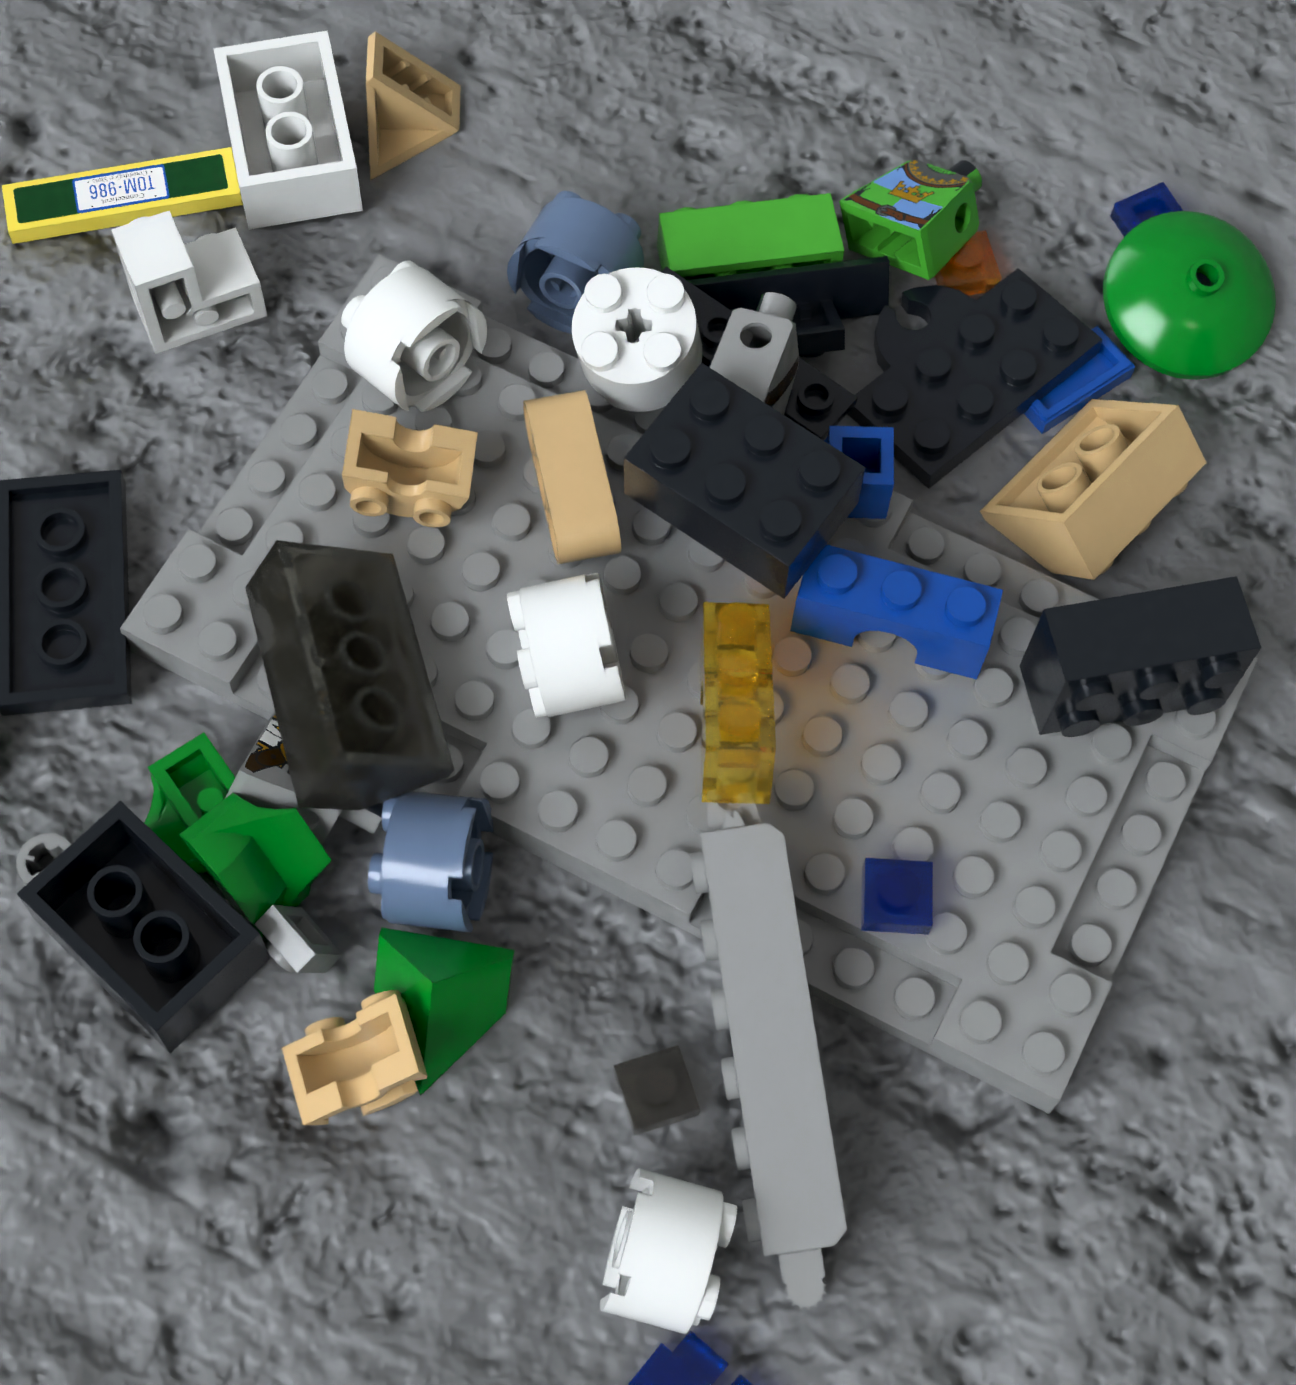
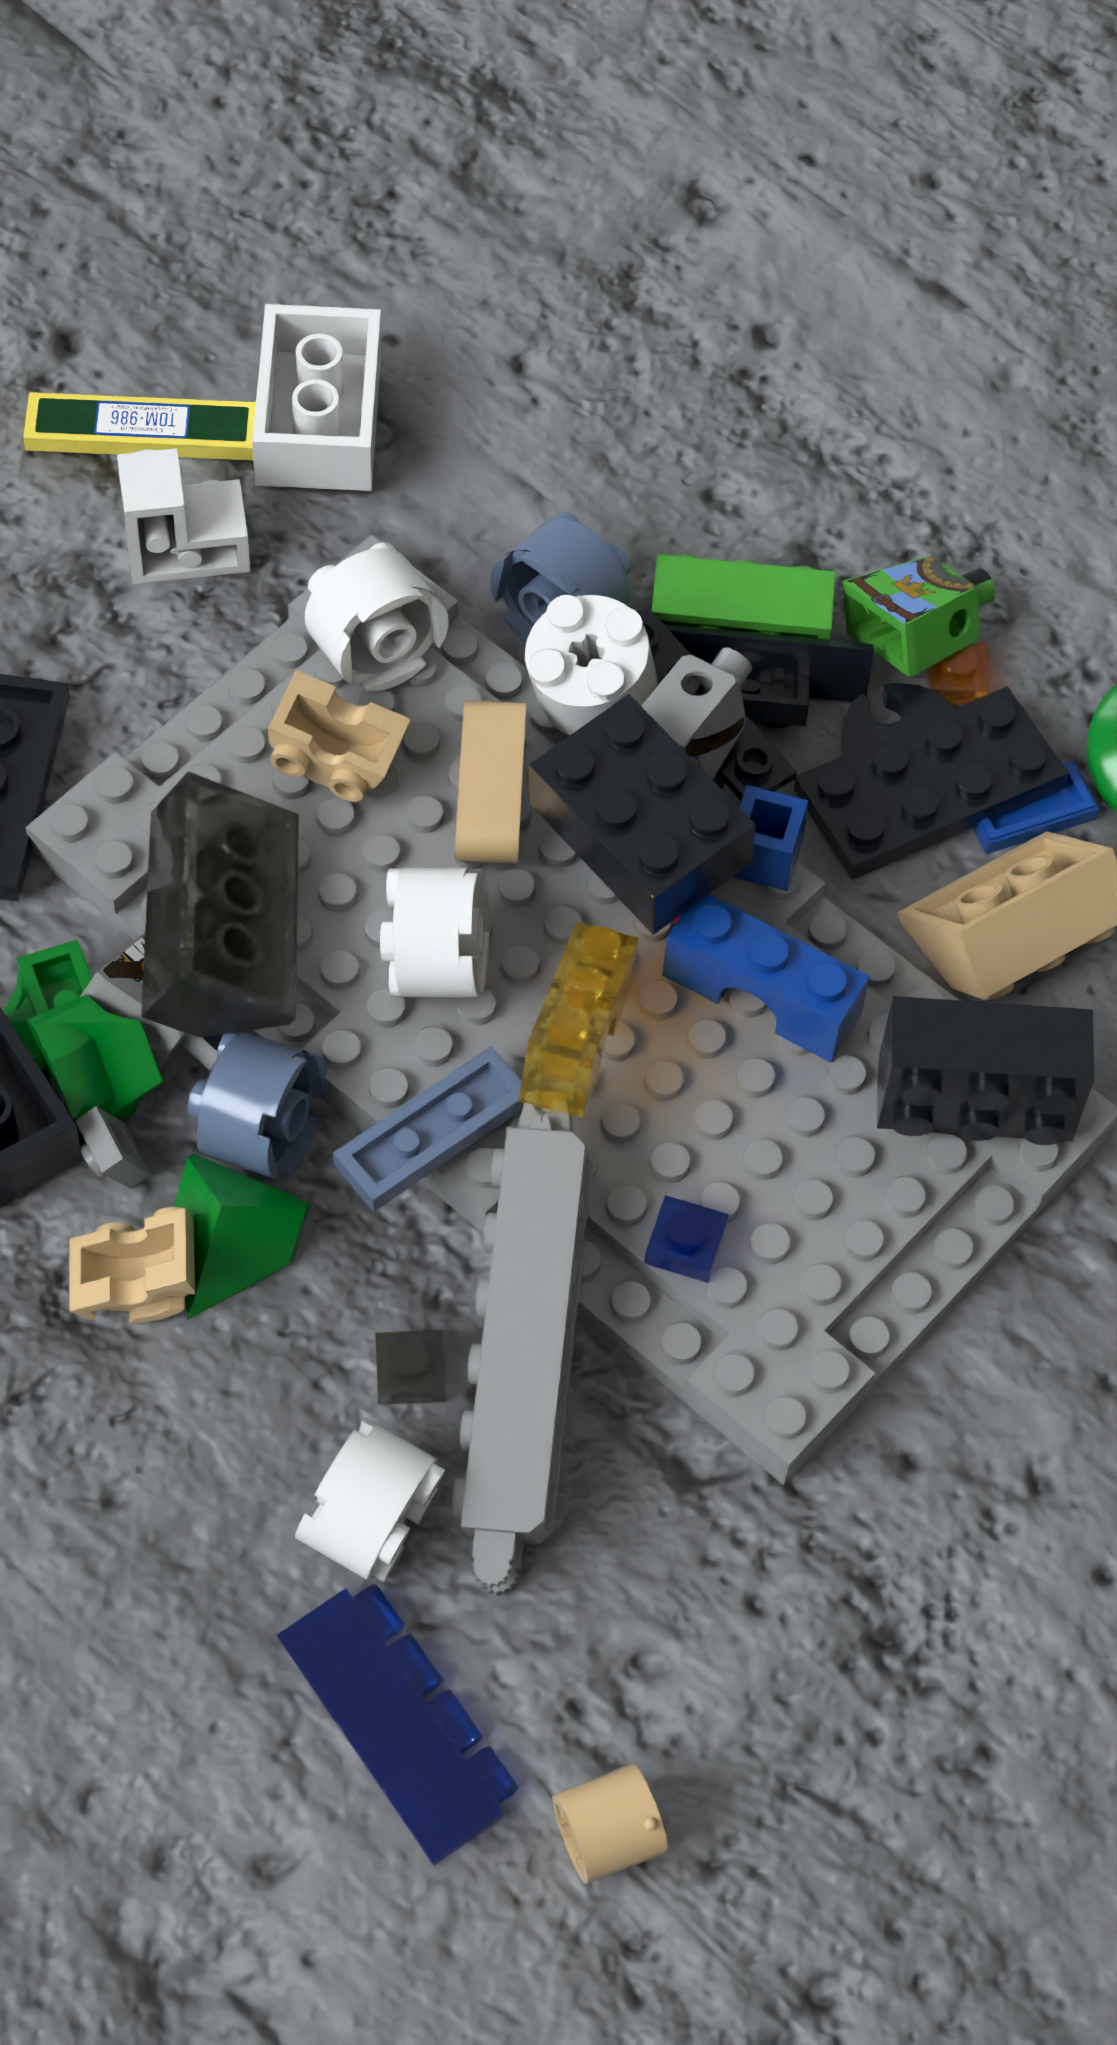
camera: 15 degrees right, 5 degrees down
(406, 105) = (441, 397): tan slope -> none
(617, 847) = (430, 1129): none -> sand blue plate

